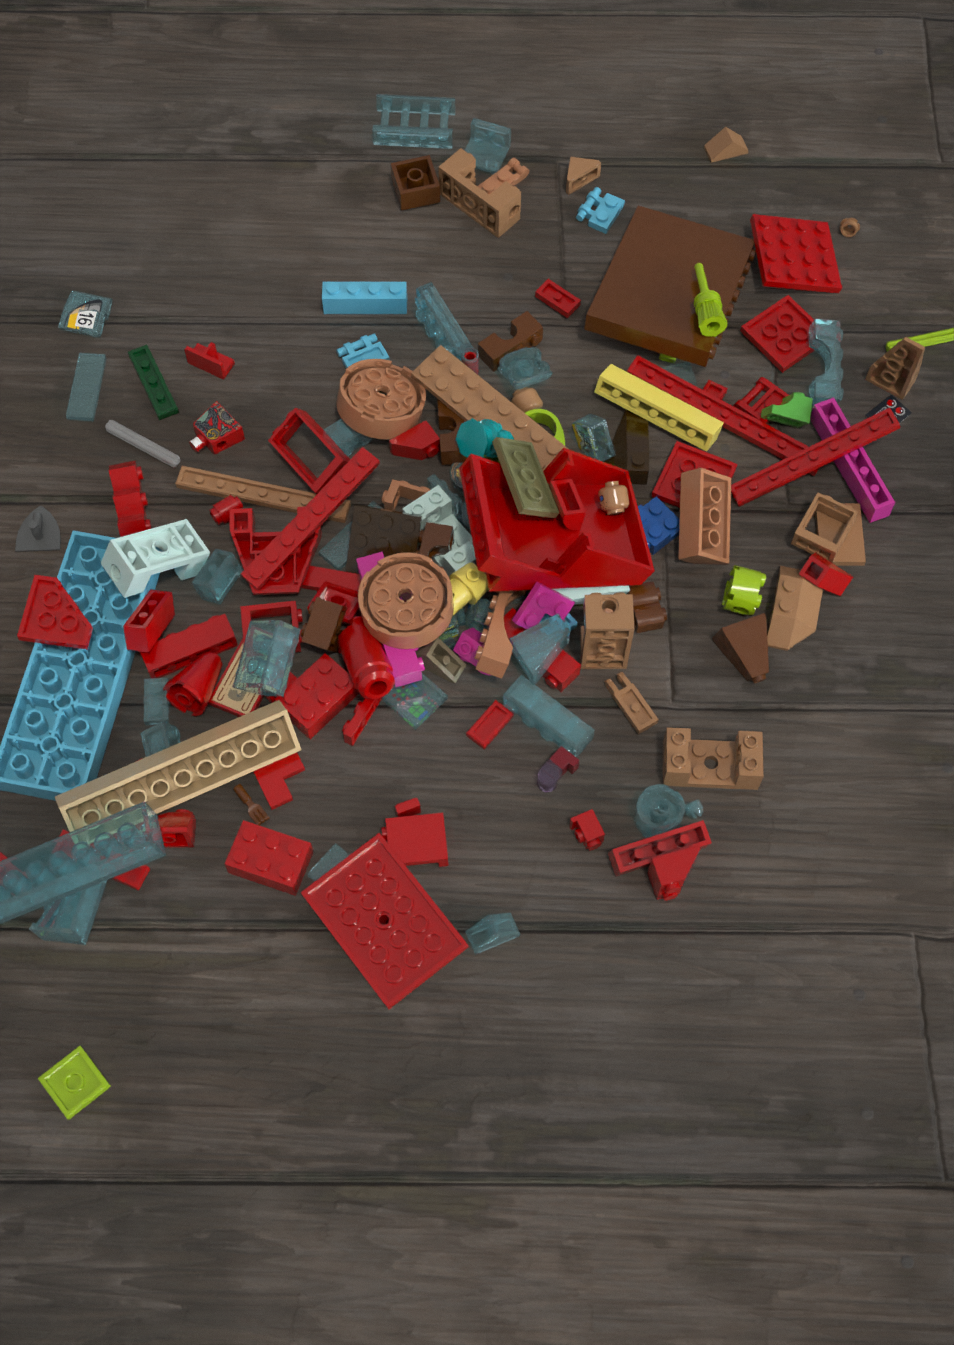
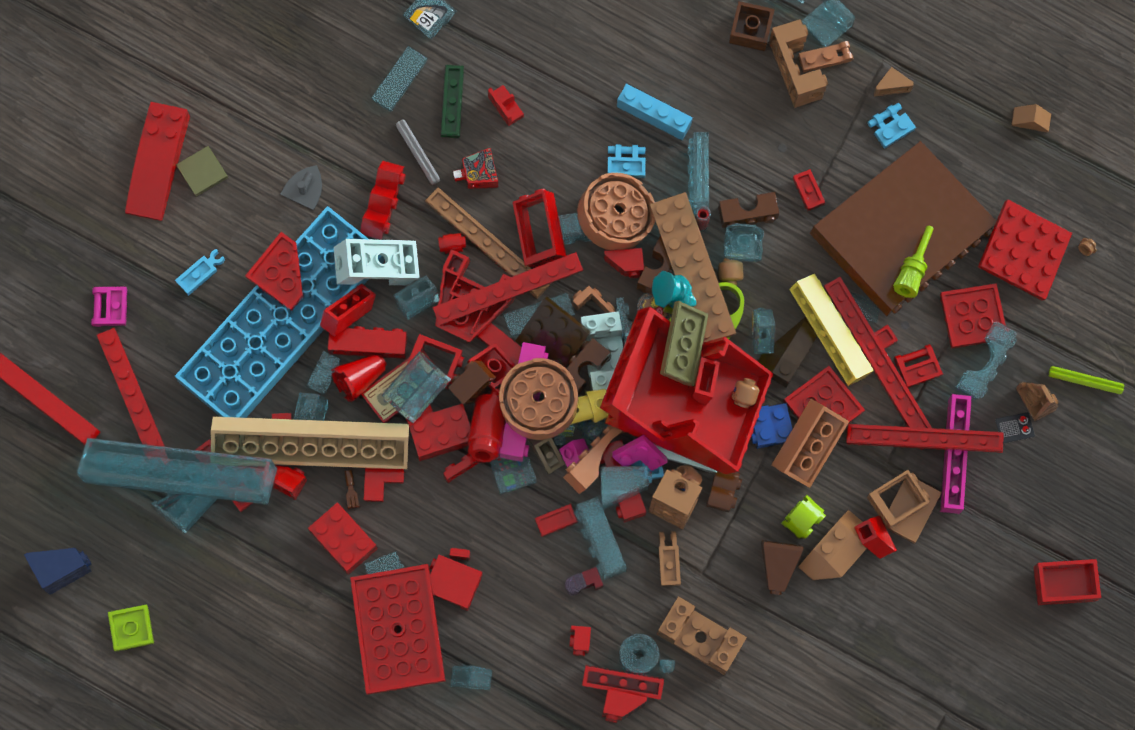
camera: 25 degrees right, 10 degrees up
(793, 411) = (934, 387): bright green arch -> none

